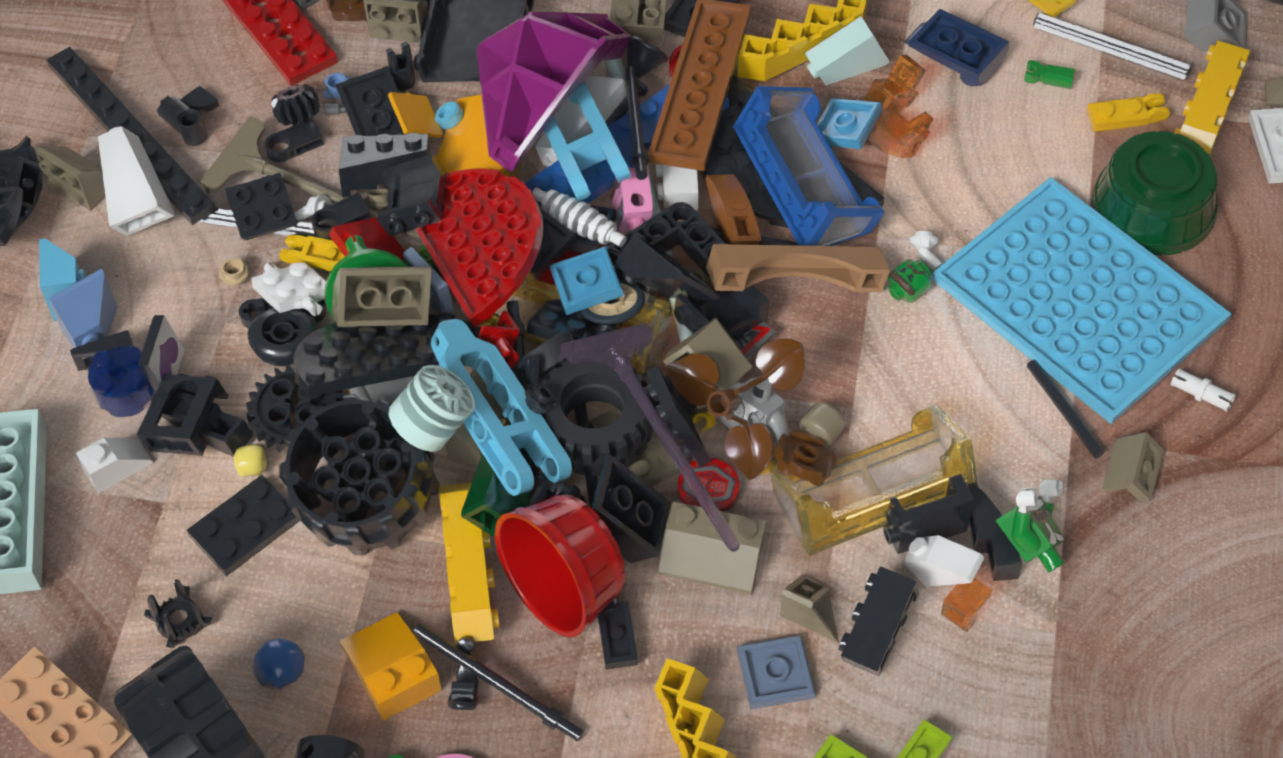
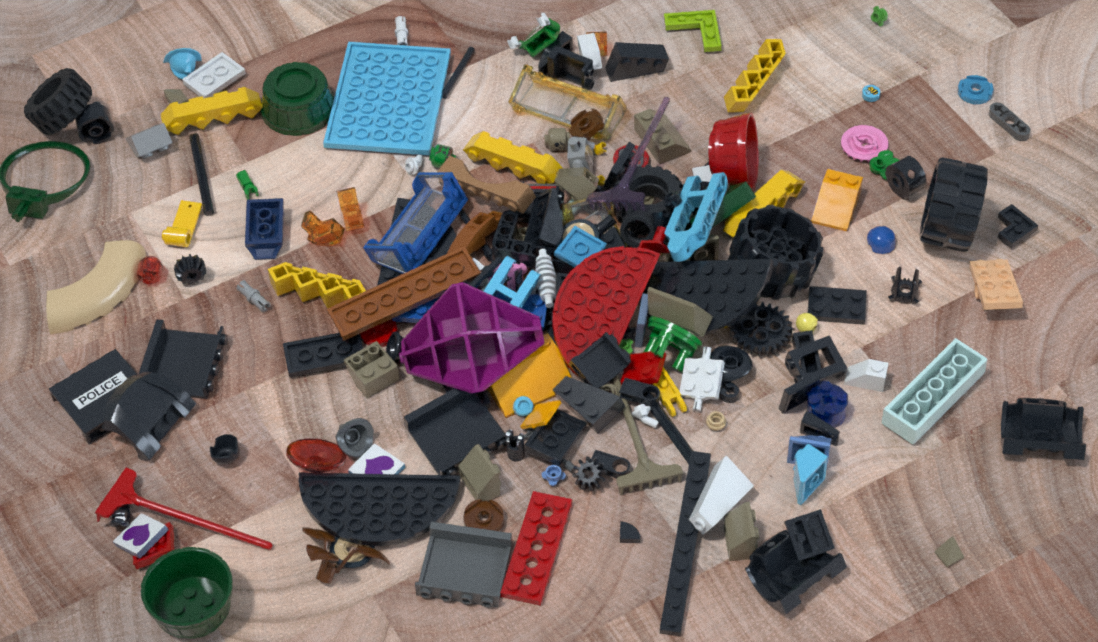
camera: 130 degrees left, 5 degrees down
(184, 120) = (651, 523): black piece -> none
(261, 206) = (667, 436): black bracket -> none
(431, 408) = (728, 214): light aqua wheel -> none
(464, 690) = (818, 172): black piece -> none
(551, 716) = (797, 137): black bar -> none
(631, 511) = (684, 158): black slope -> none
(696, 380) = (599, 143): reddish brown plant -> none
(775, 672) = (693, 85): sand blue tile -> none
(810, 606) = (652, 91): dark tan slope -> none
(845, 336) = (520, 160): none -> yellow brick
(846, 54) = (313, 257): light aqua slope -> none
(849, 122) = (357, 235): dark azure tile -> none
(1127, 112) = (245, 144): yellow hinge -> none
(1134, 466) = (469, 34): dark tan panel -> none

